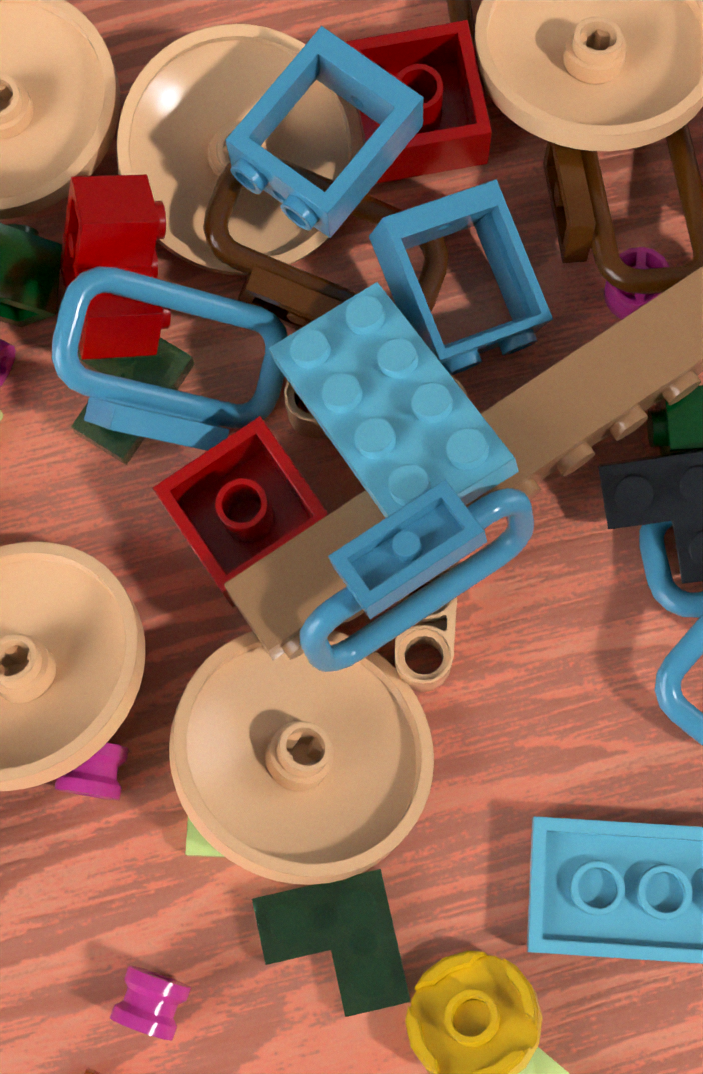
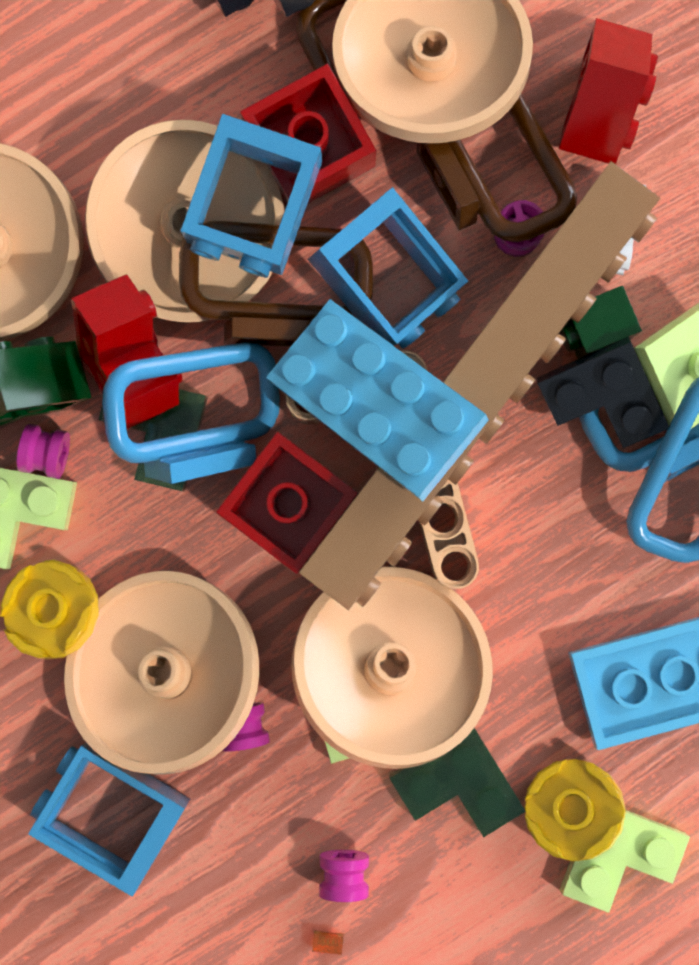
camera: 25 degrees left, 10 degrees up
(403, 556) = (433, 516): dark azure bar -> none

